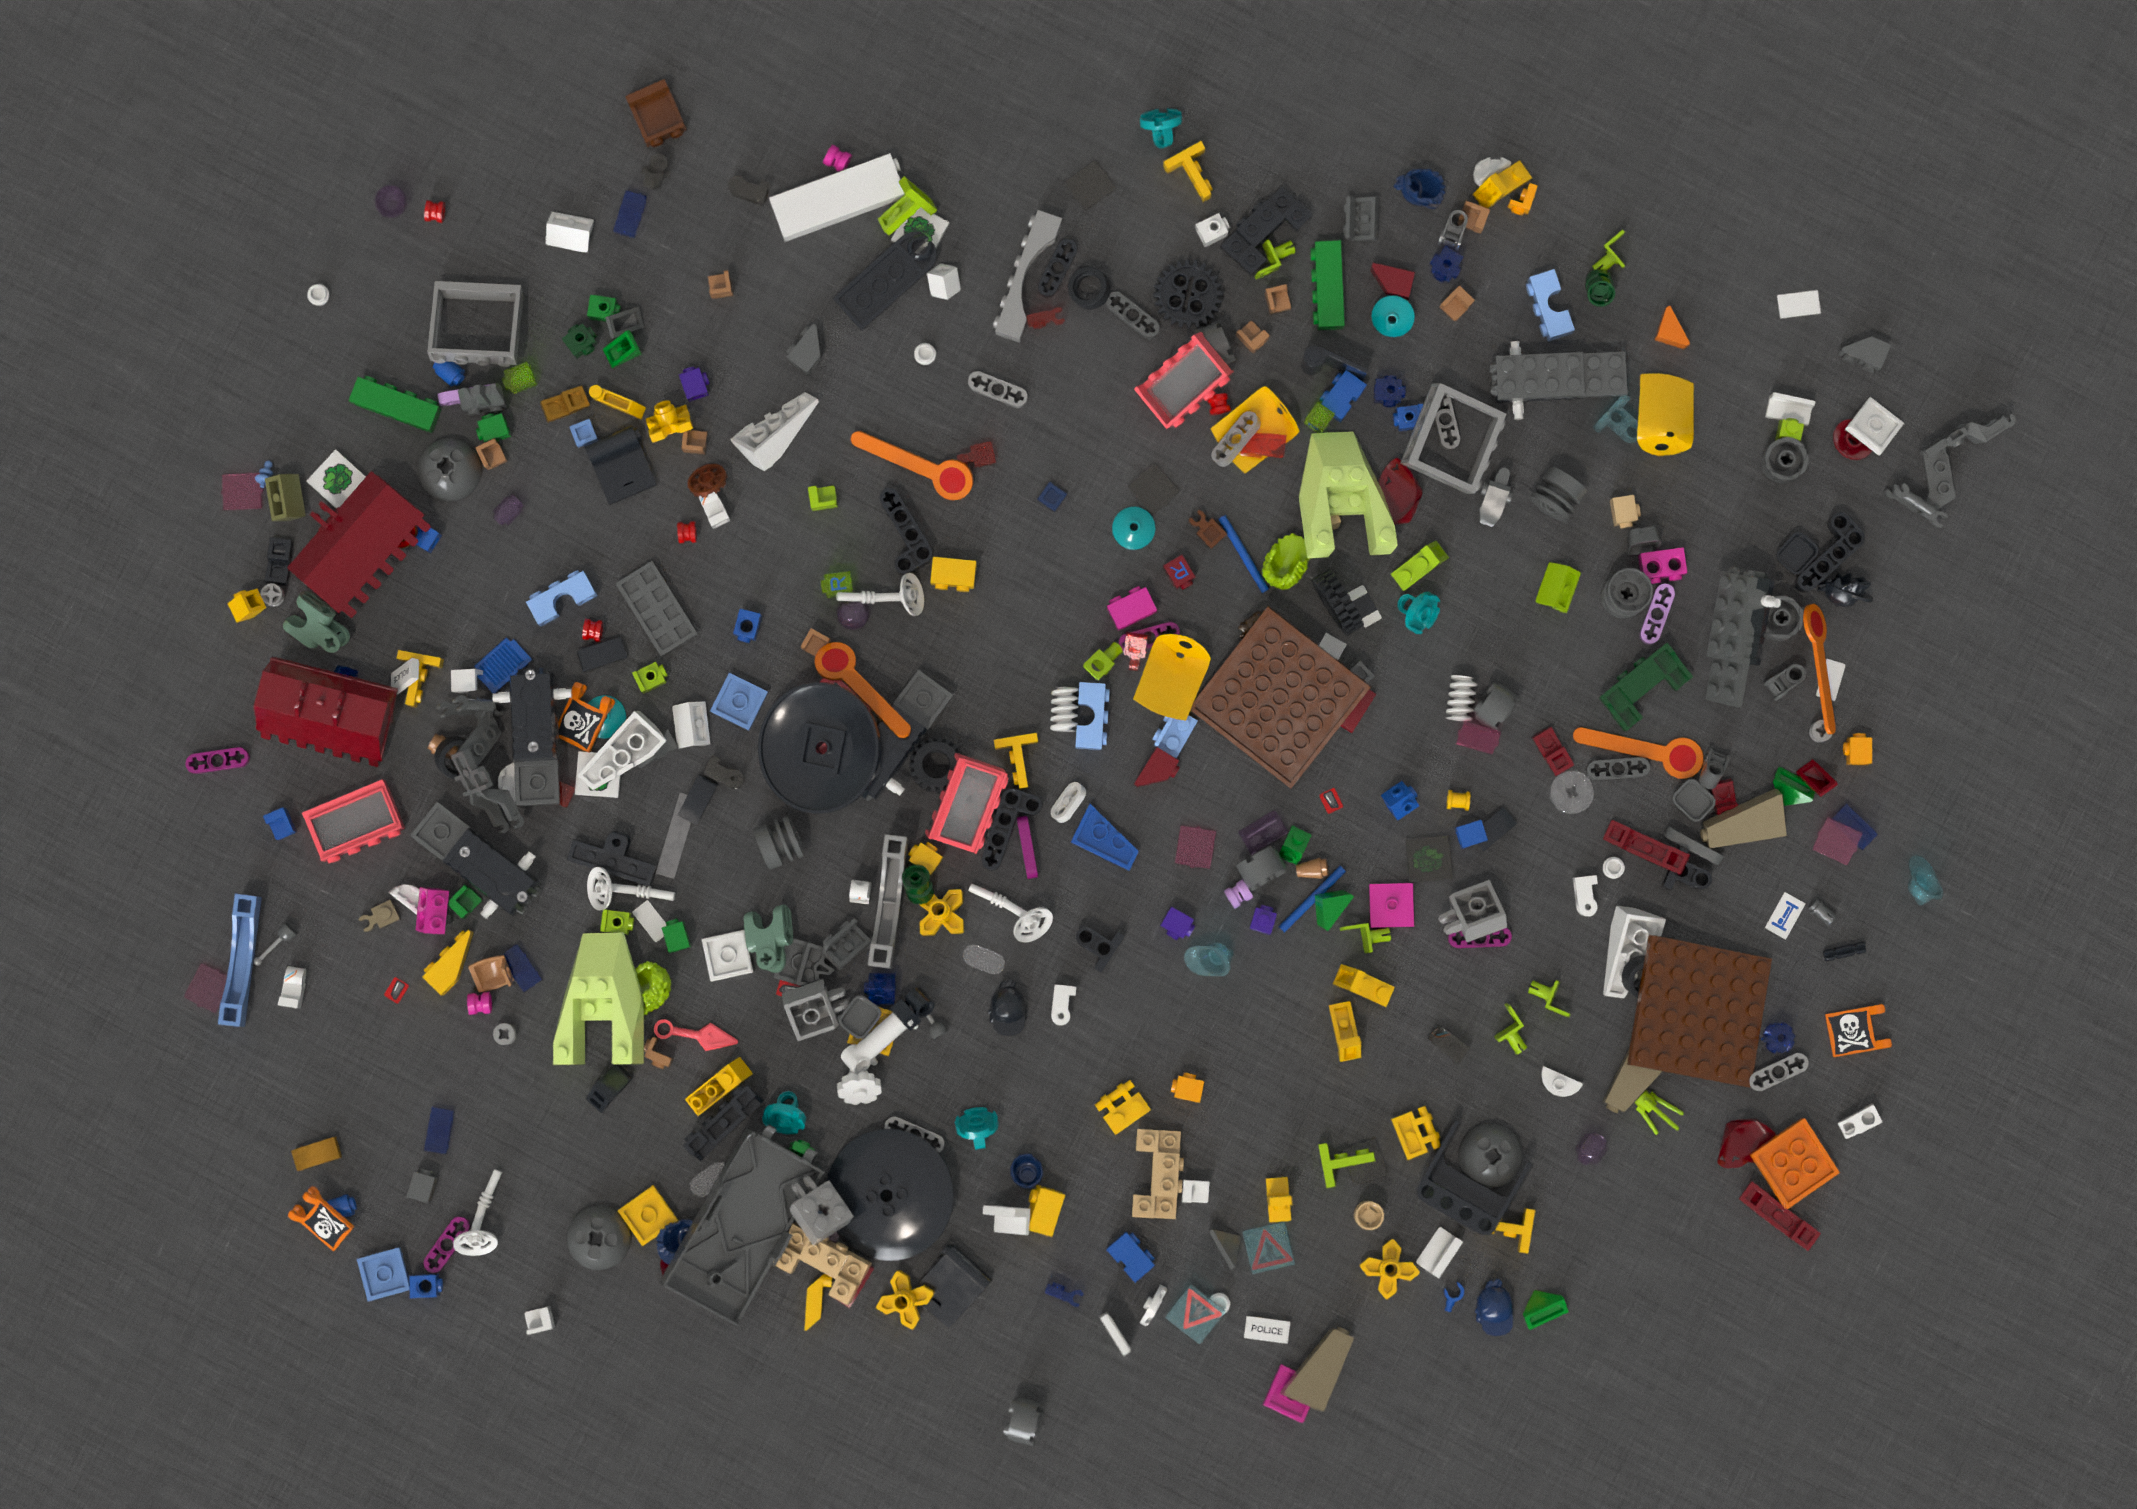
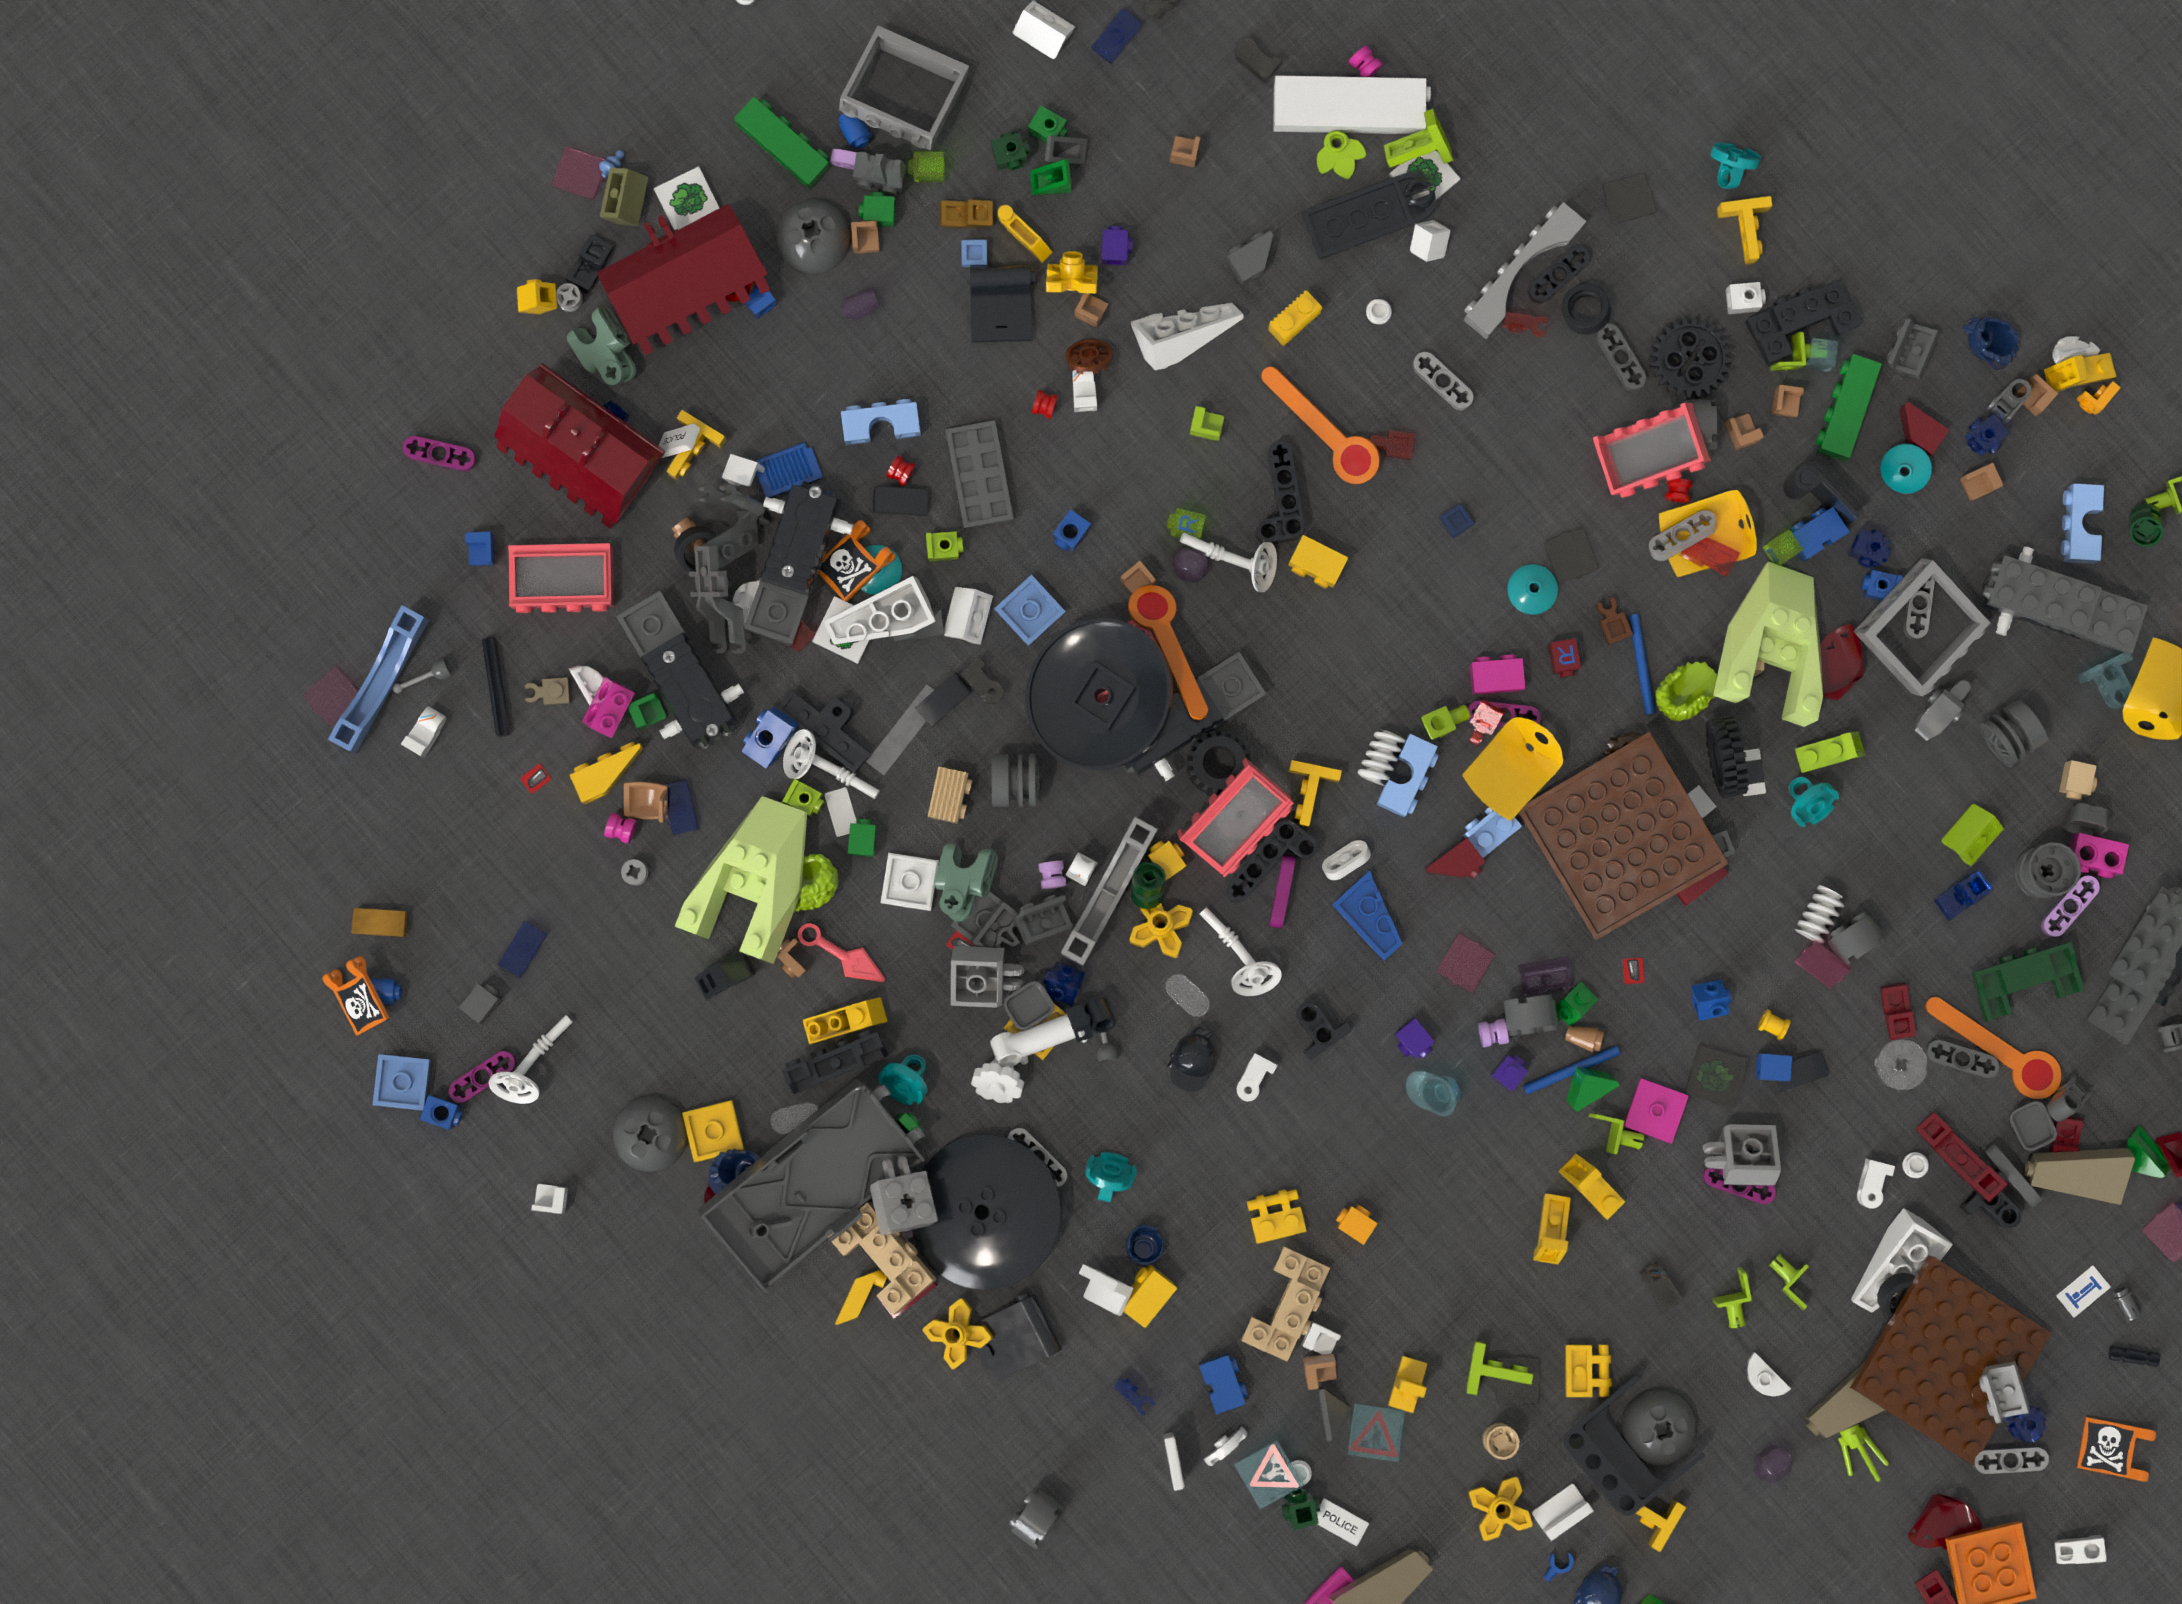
camera: 15 degrees right, 0 degrees up
(335, 929) = (495, 686): none -> black axle
(575, 872) = (781, 728): none -> brick
(732, 874) = (949, 795): none -> tan brick
(838, 900) = (1052, 868): none -> lavender wheel
(848, 242) = (1341, 158): none -> lime plate
(860, 385) = (1294, 317): none -> yellow brick
(1203, 1215) = (1319, 1369): none -> medium nougat panel
(1231, 1331) = (1301, 1508): none -> dark green brick
(1291, 251) = (1822, 355): none -> clear light blue panel
(1568, 638) = (1963, 894): none -> clear blue brick
(1749, 1019) = (2004, 1391): none -> light grey bracket

